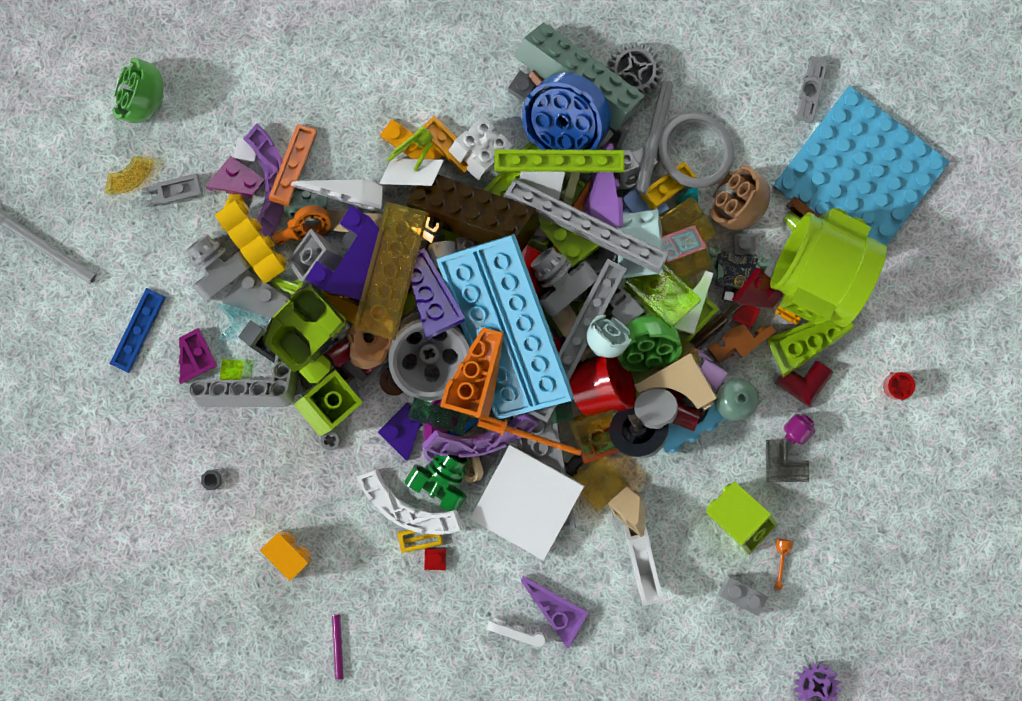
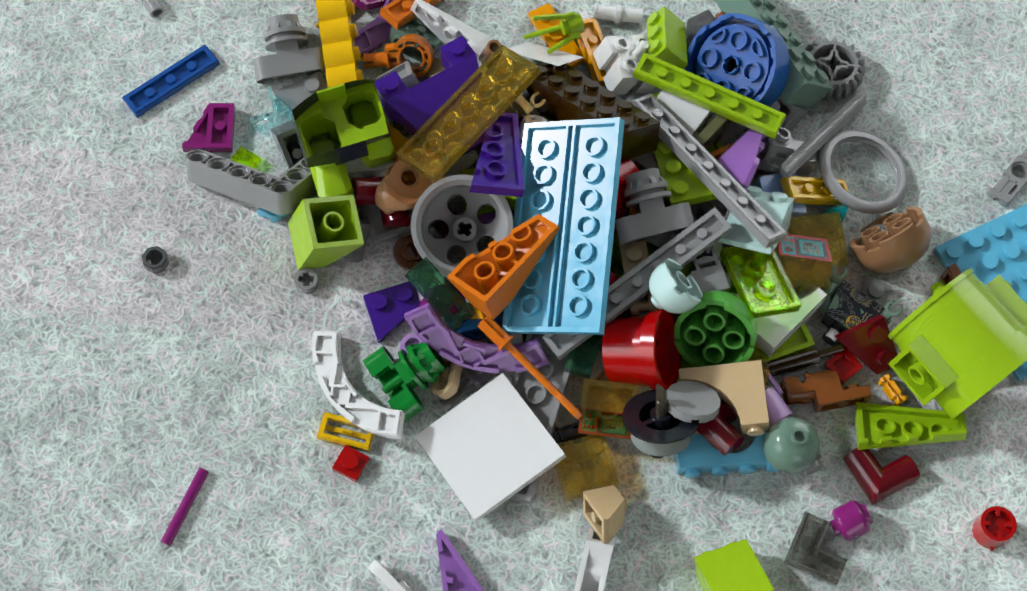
camera: 25 degrees right, 20 degrees down
(286, 554) = (188, 369): light orange brick -> none
(373, 205) = (489, 49): none -> medium nougat axle
(449, 102) = (618, 14): none -> white pin
(502, 117) = (667, 37): none -> lime brick

